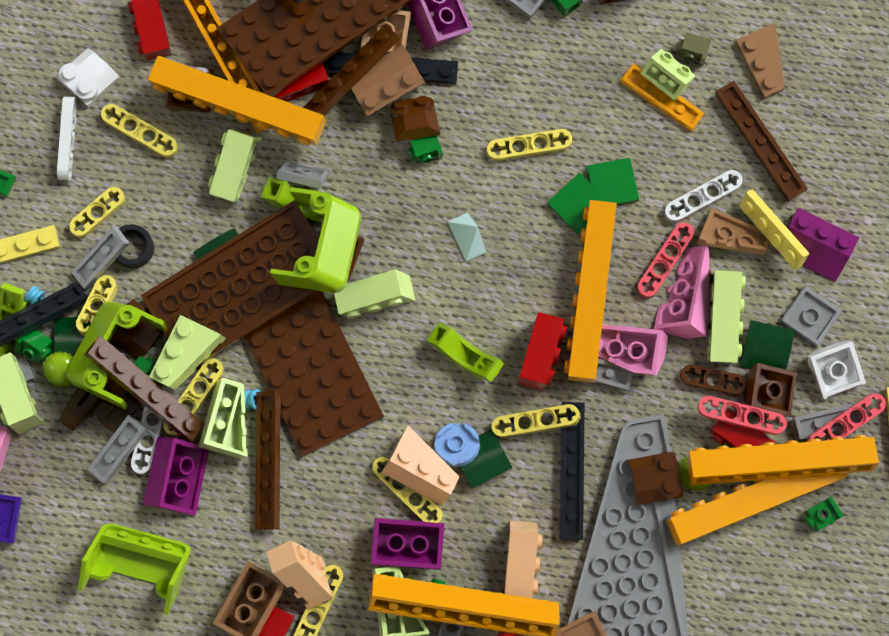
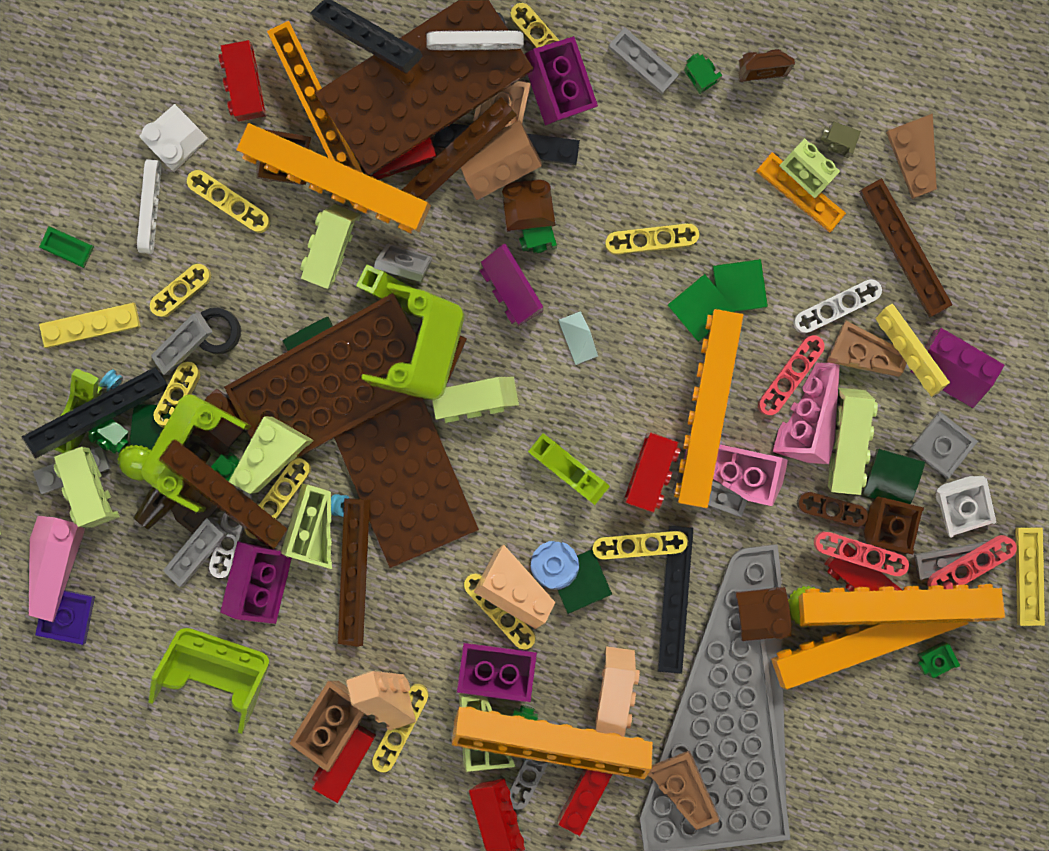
camera: 10 degrees right, 10 degrees up
(403, 191) = (511, 286): none -> magenta slope

